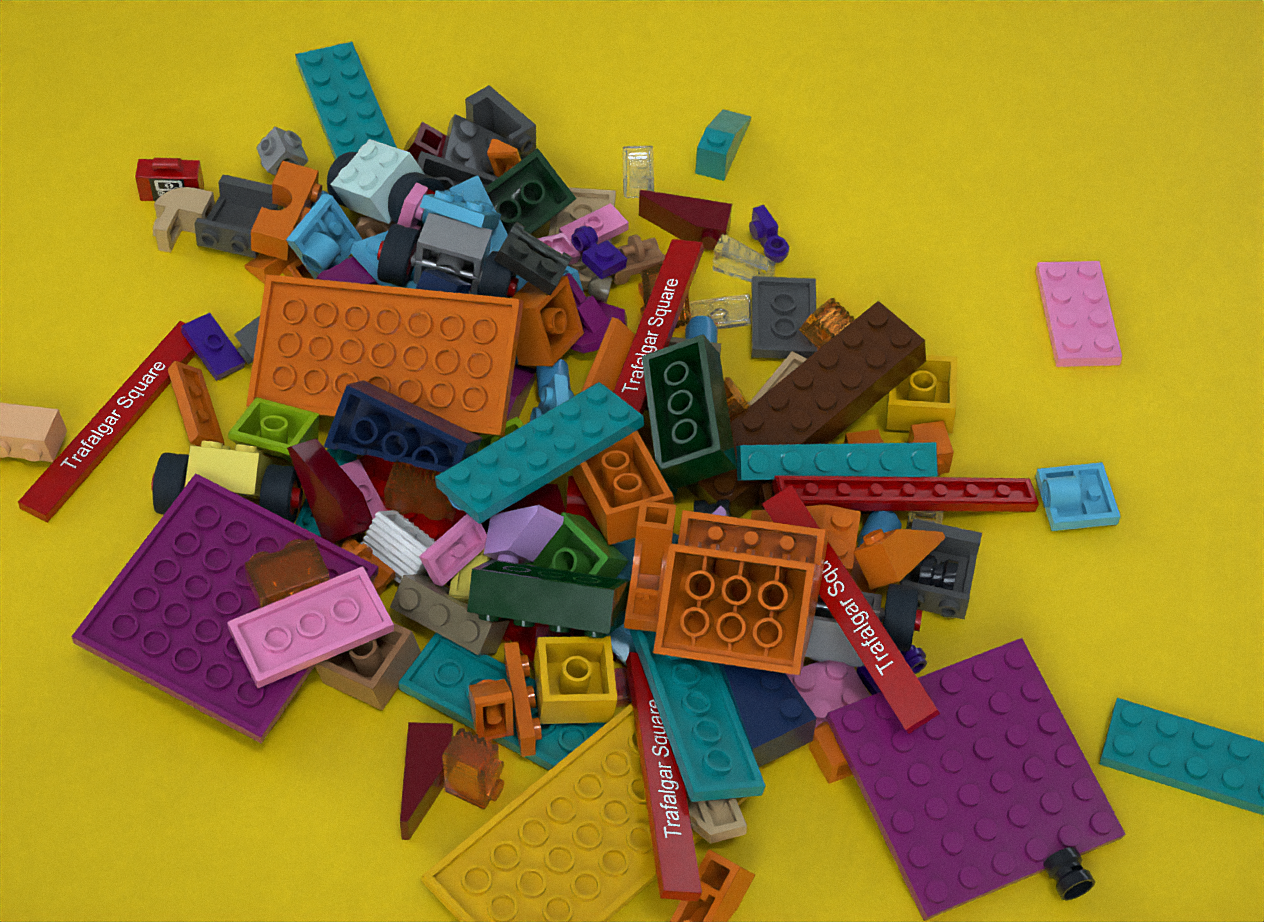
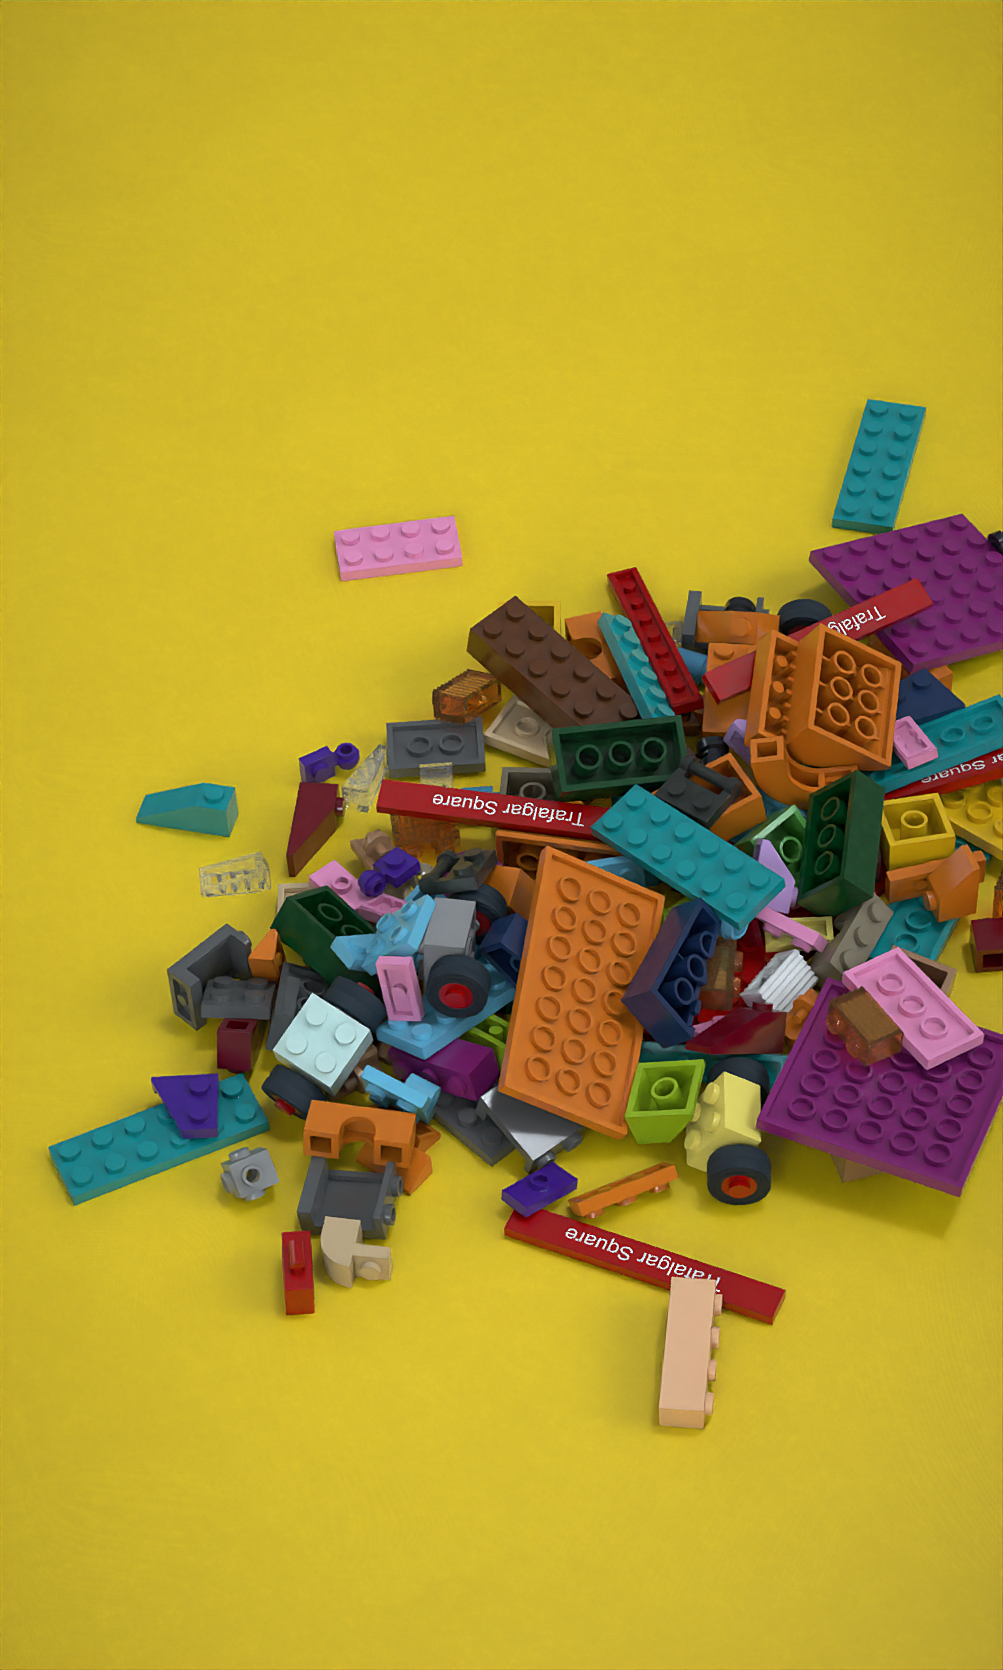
camera: 90 degrees left, 5 degrees down
(364, 119) = (191, 1103): none -> dark purple wing
(615, 457) = (694, 800): none -> pearl dark grey plate
(691, 679) = (912, 744): none -> bright pink plate
(1077, 496) = (623, 543): medium azure plate -> none

